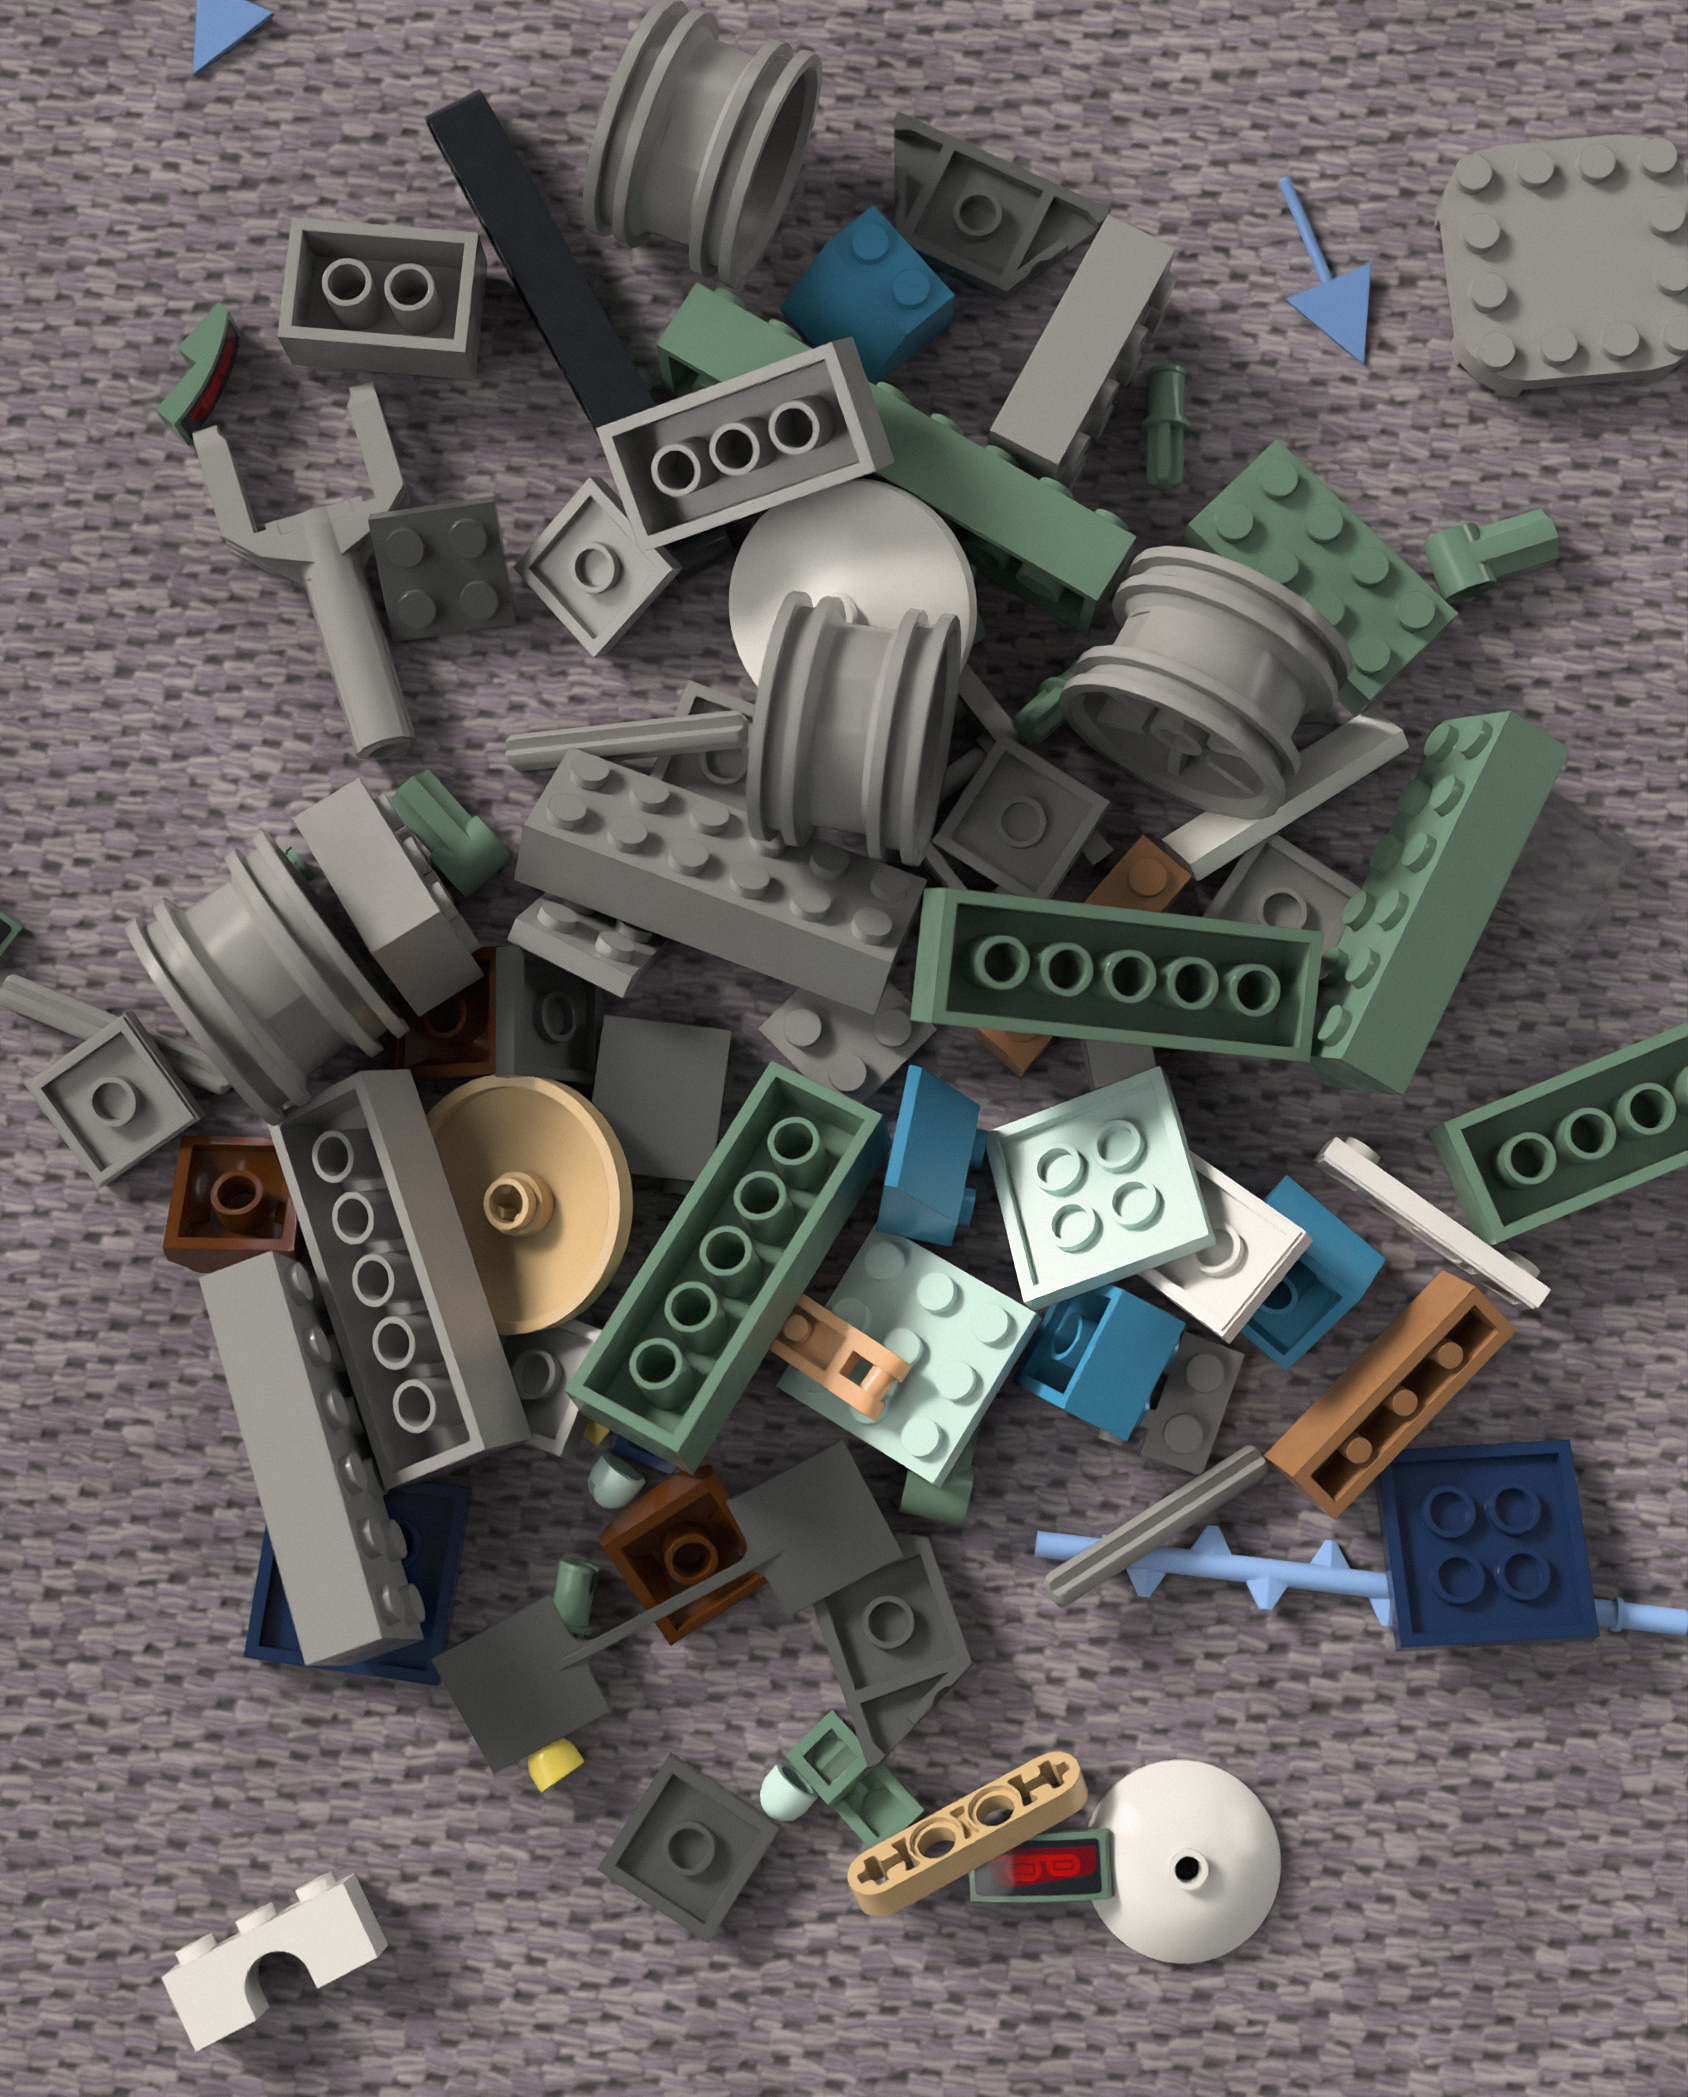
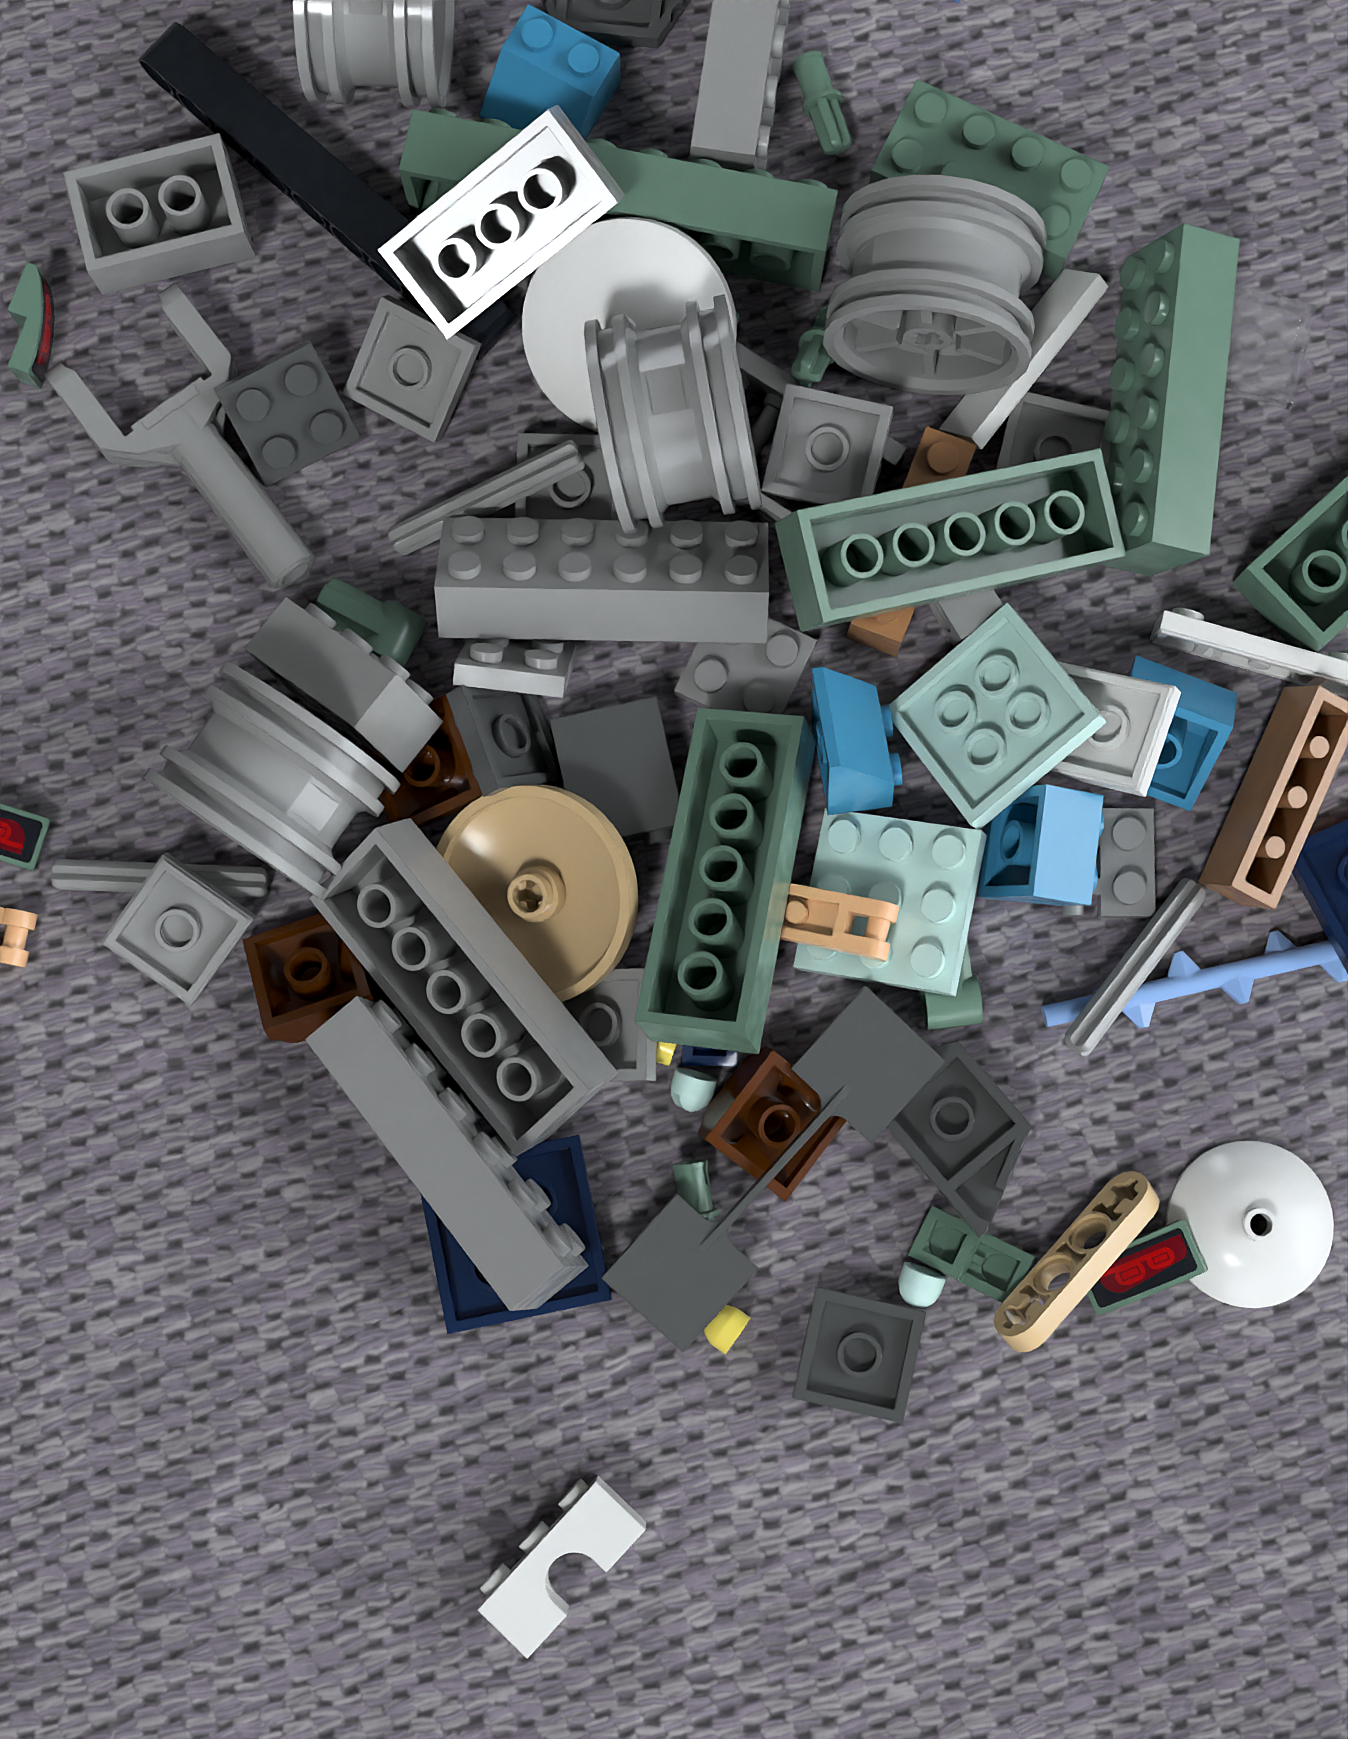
camera: 20 degrees left, 0 degrees up
(1474, 559) = (1104, 123): sand green piece -> none

